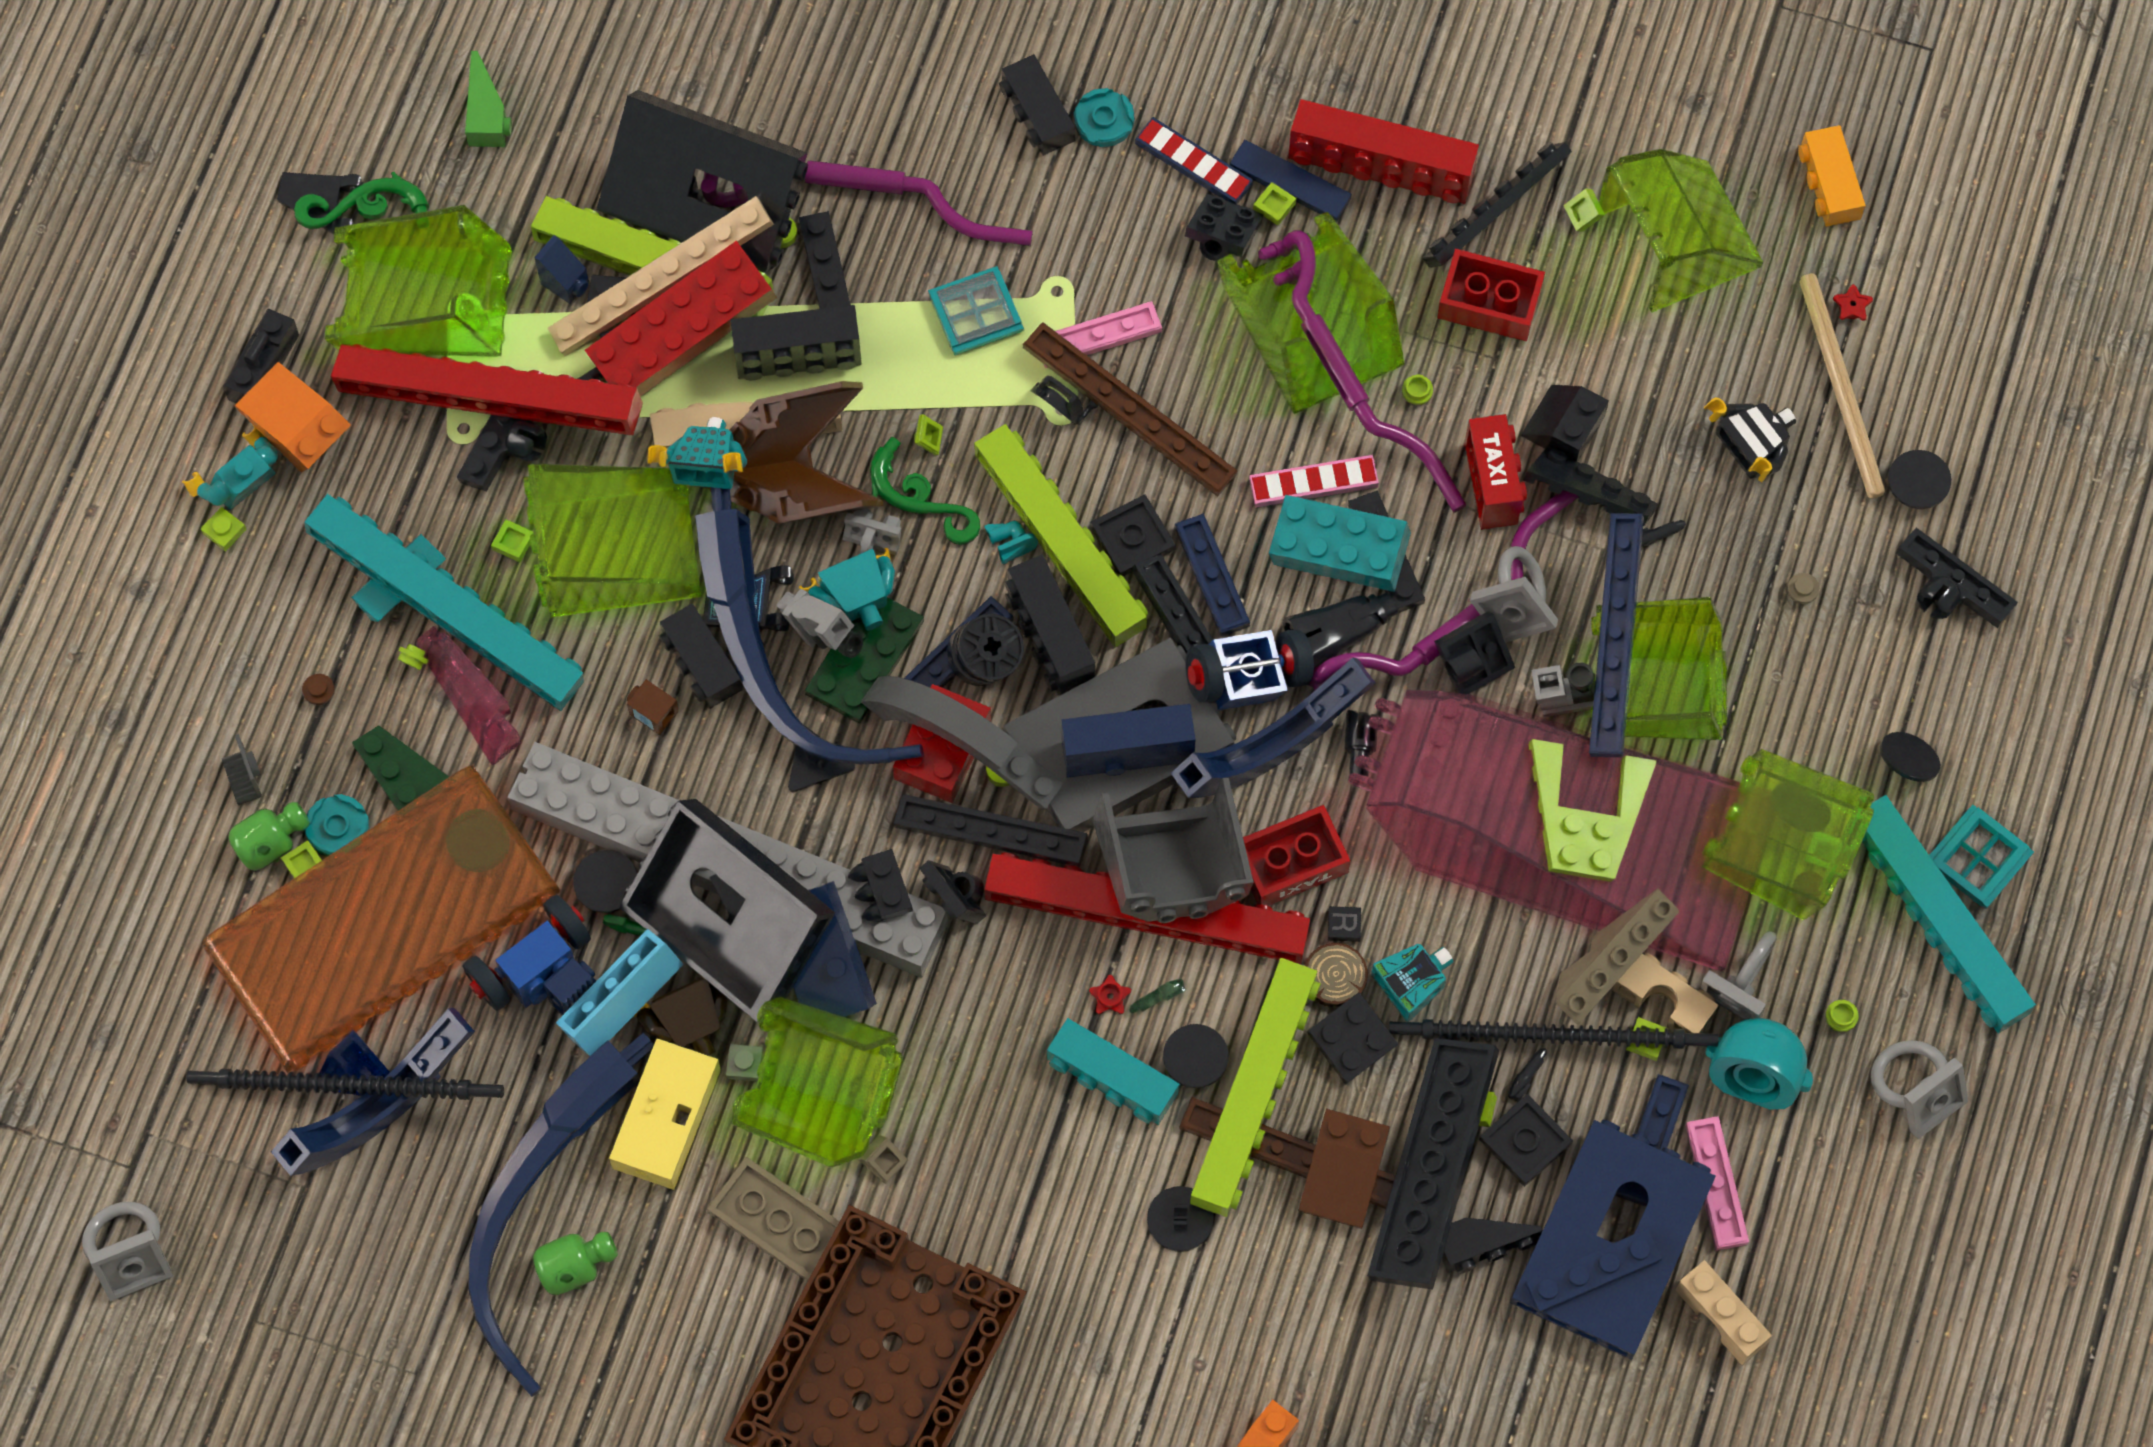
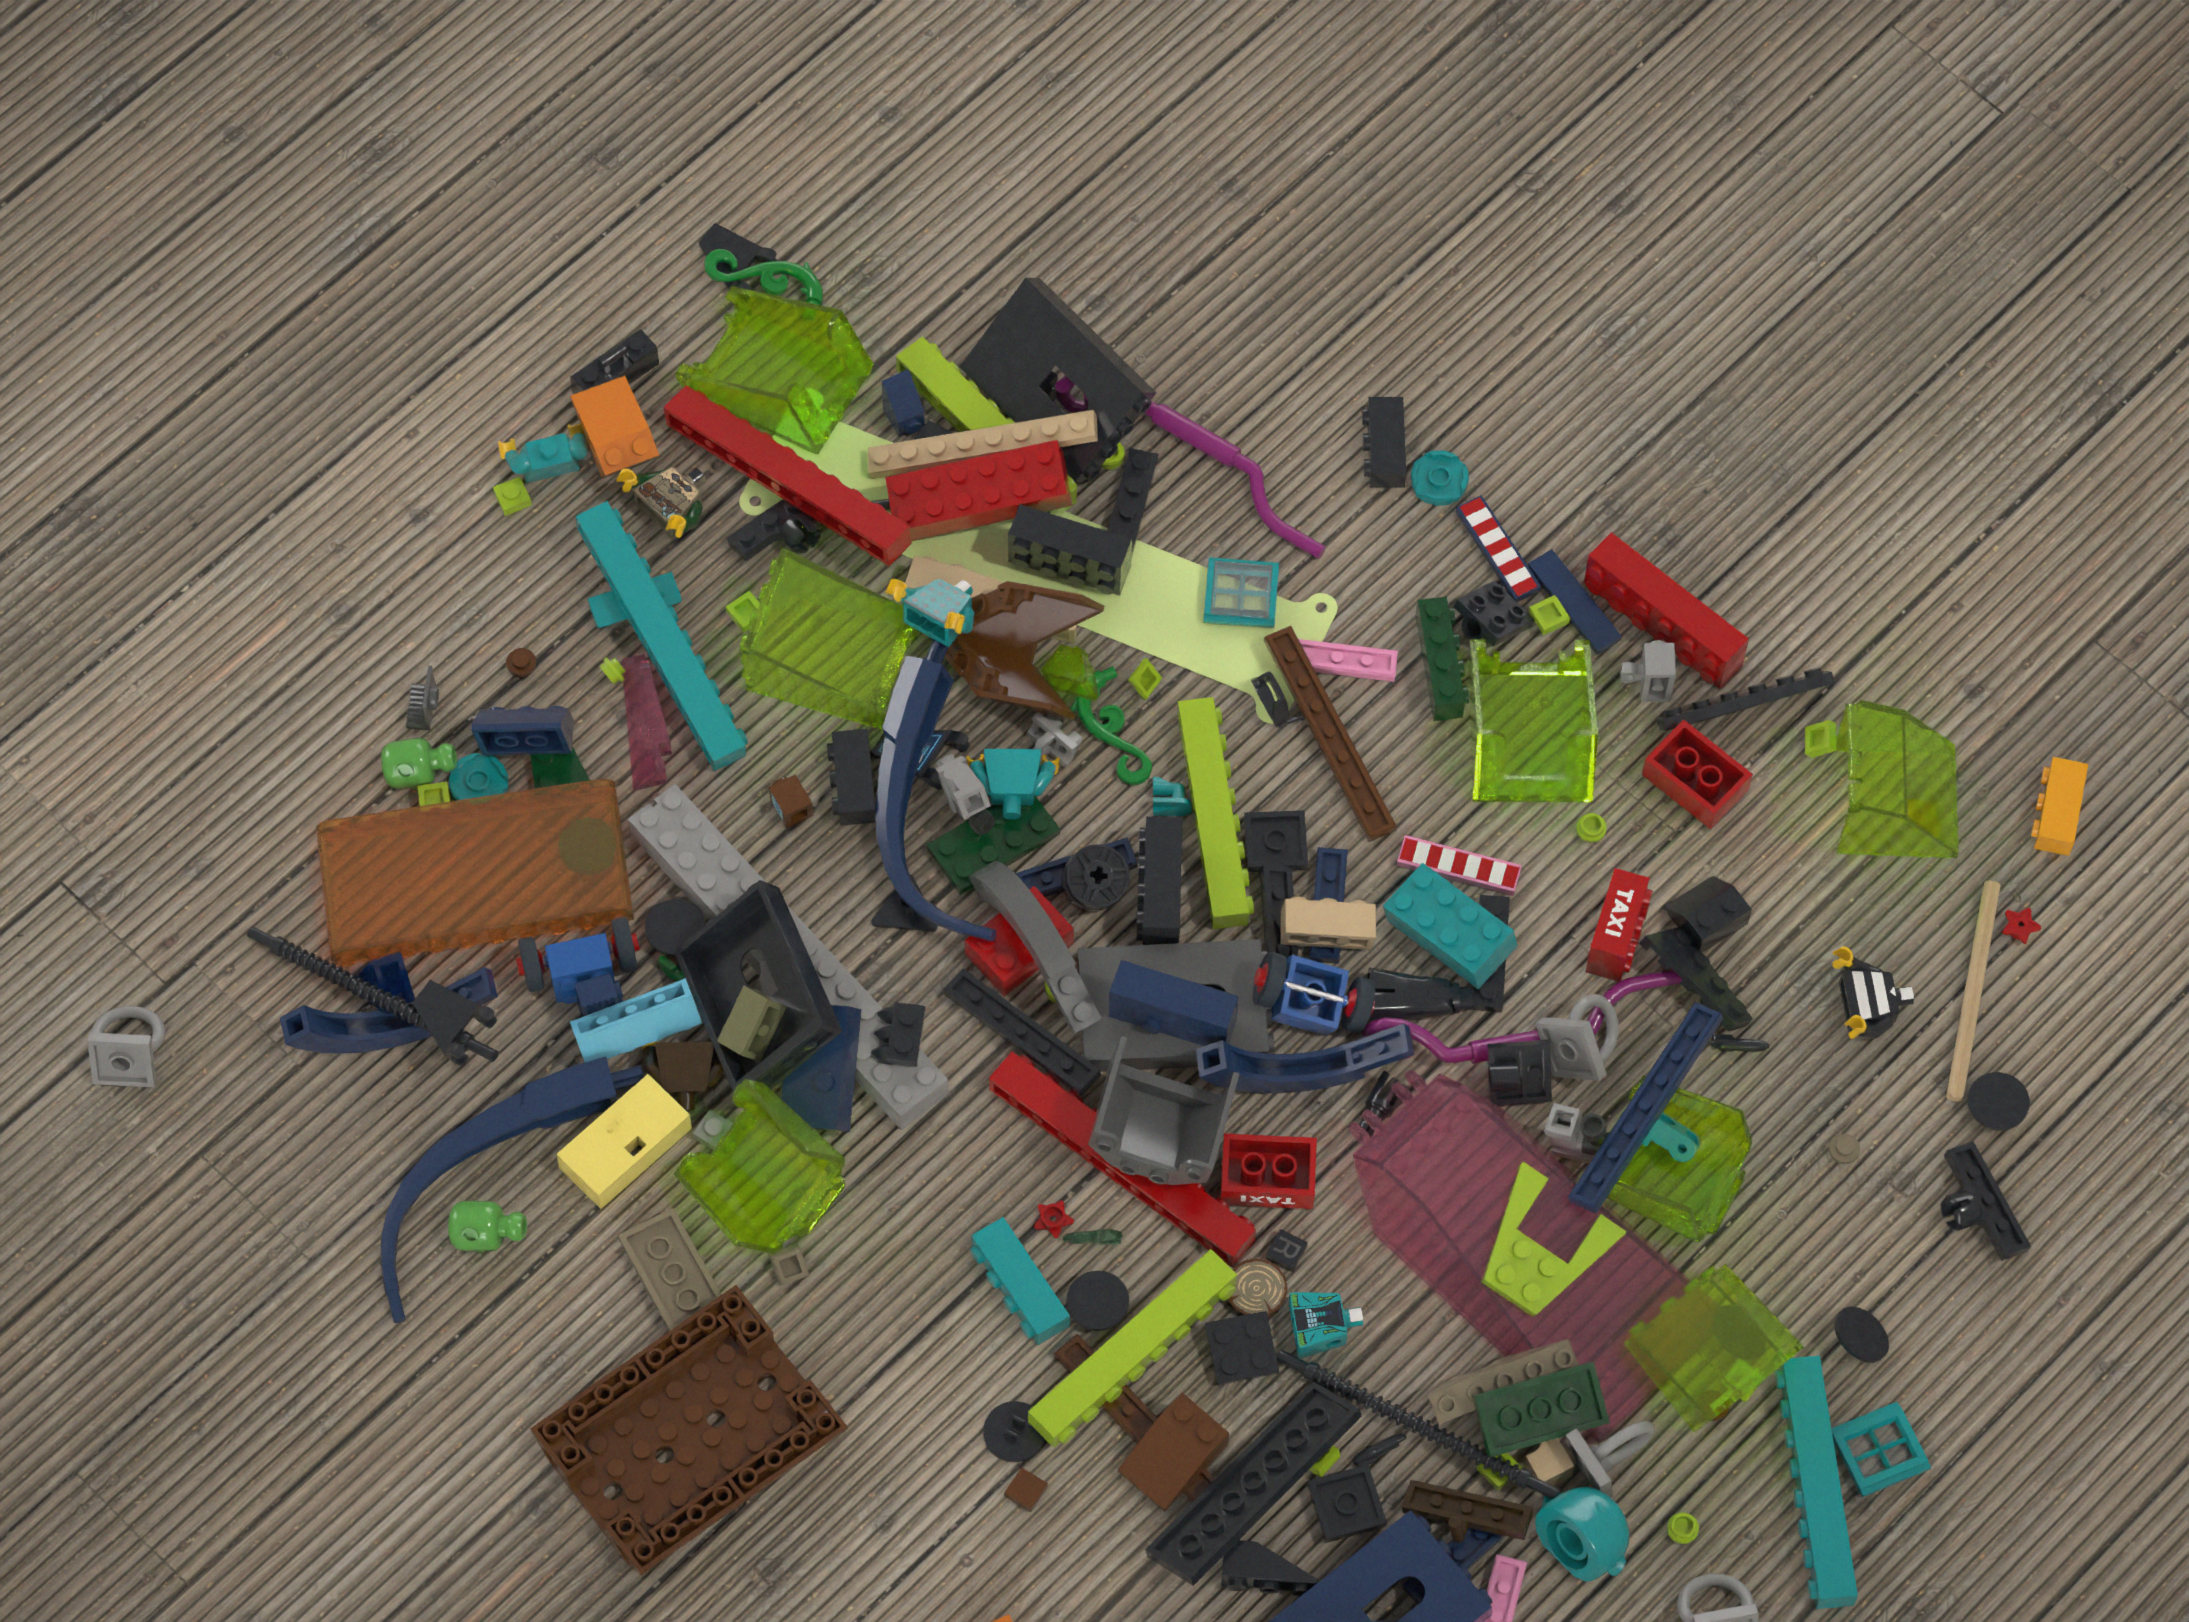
camera: 25 degrees right, 5 degrees down
(360, 756) = (524, 731): none -> dark blue slope
(379, 463) = (667, 497): none -> torso
(436, 1073) = (448, 1015): none -> black flag
(485, 111) = (908, 247): bright green slope -> none
(737, 943) = (752, 1023): none -> olive brick
(858, 460) = (1071, 672): none -> clear neon green slope
(942, 880) = (959, 1064): black plate -> none
(1196, 290) = (1440, 658): none -> dark green brick
(1220, 1269) = (1026, 1489): none -> reddish brown tile
(1225, 593) = (1328, 923): none -> tan brick
(1337, 366) = (1526, 775): magenta piece -> none
(1403, 215) = (1655, 672): none -> light grey brick
(1641, 1094) = (1467, 1511): none -> dark brown plate
(1653, 651) = (1673, 1137): none -> teal leg
(1665, 966) = (1540, 1409): none -> dark green plate

